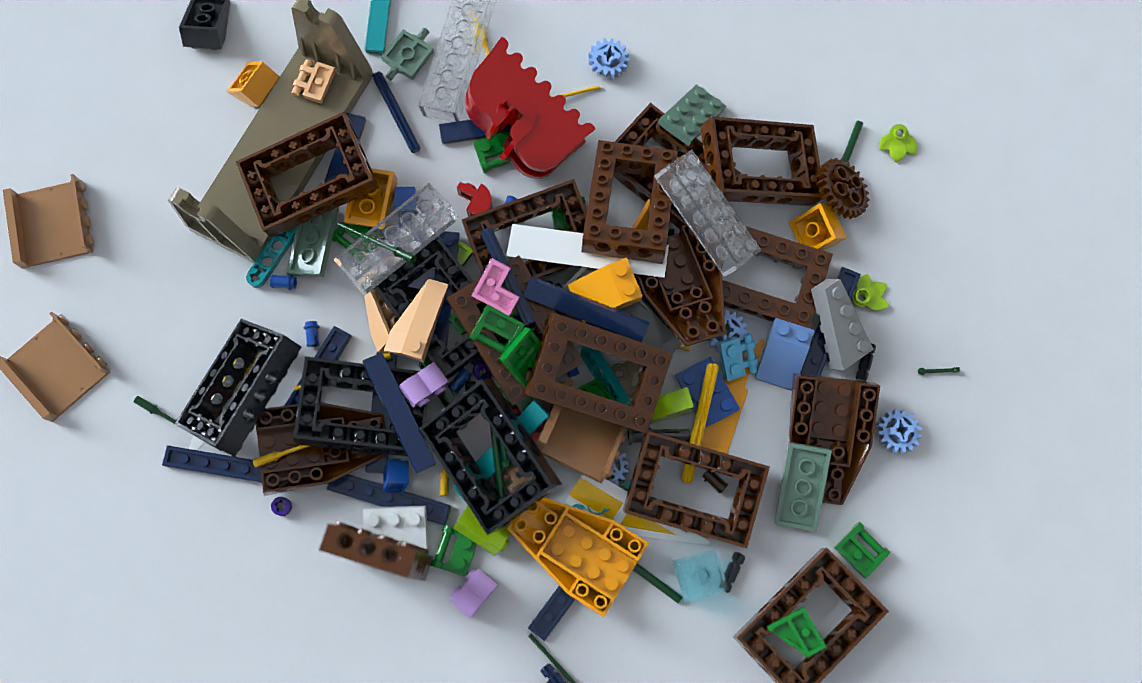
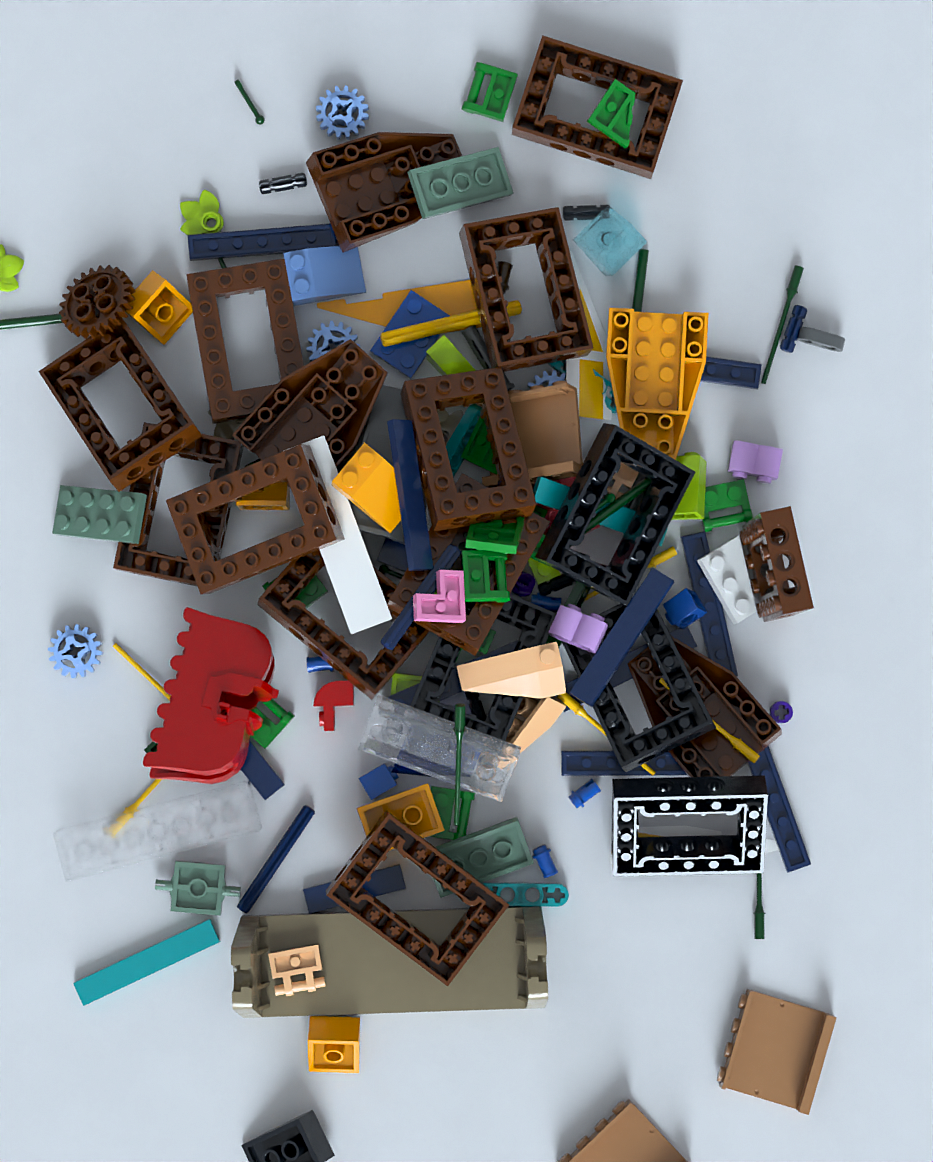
camera: 120 degrees left, 10 degrees up
(707, 213) = (225, 426): clear brick -> none
(731, 357) = (362, 325): medium azure plate -> none
(841, 326) = (267, 223): light grey wedge -> none

